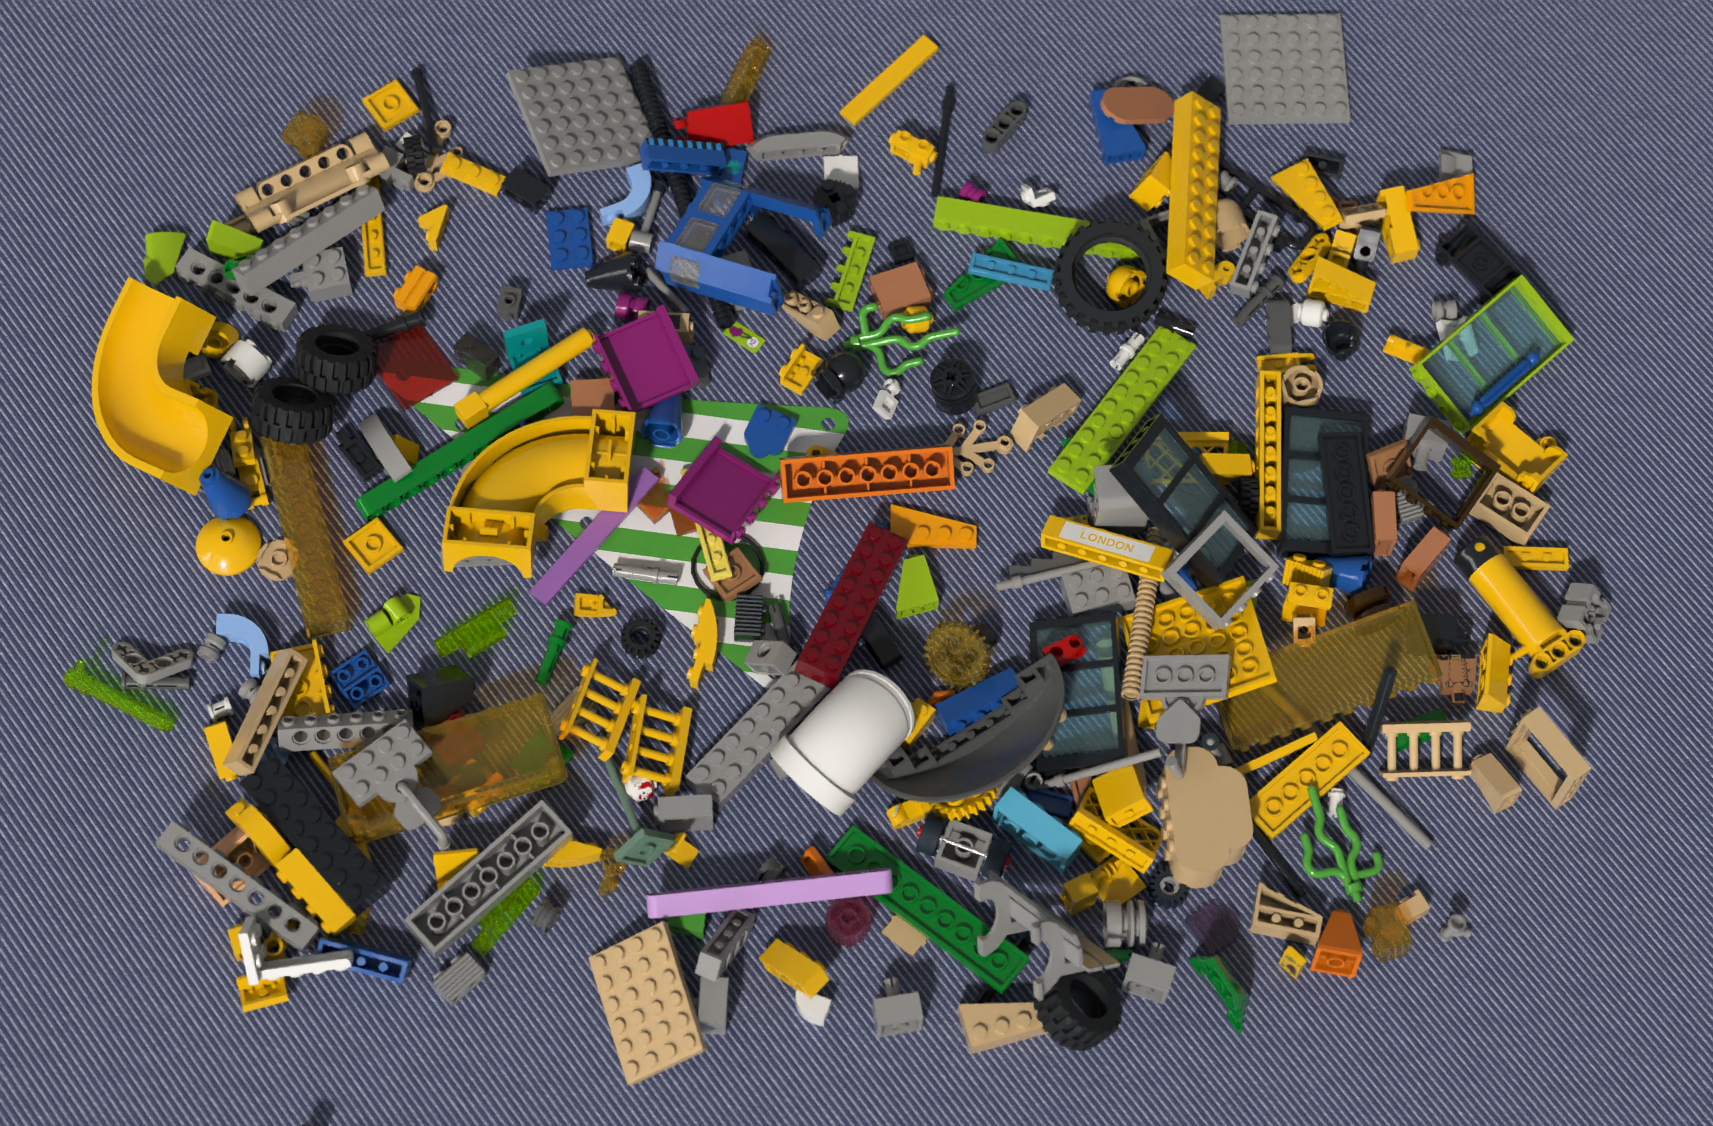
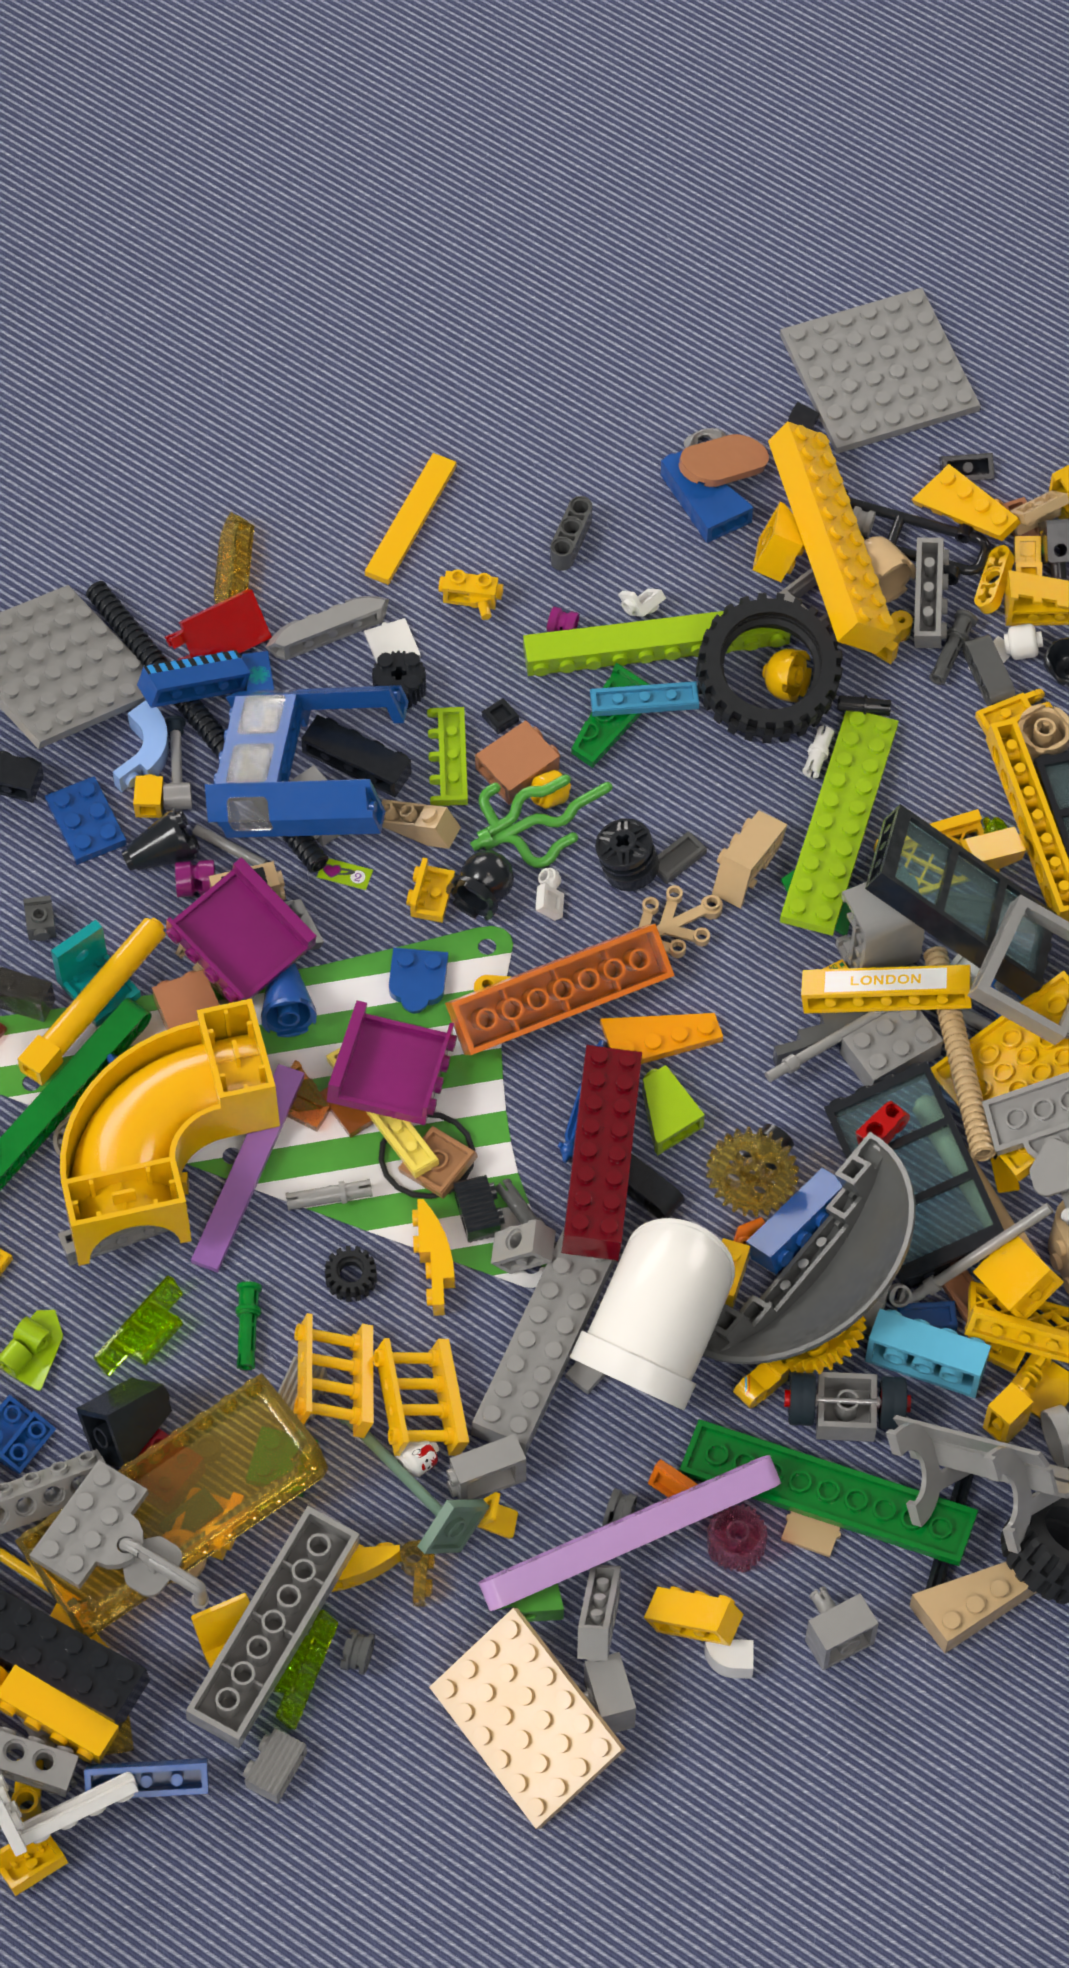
camera: 15 degrees left, 5 degrees down
(592, 606) = (275, 1254): yellow slope -> none
(947, 106) = (493, 529): black bar -> none
(1248, 496) = (1030, 876): black tyre -> none

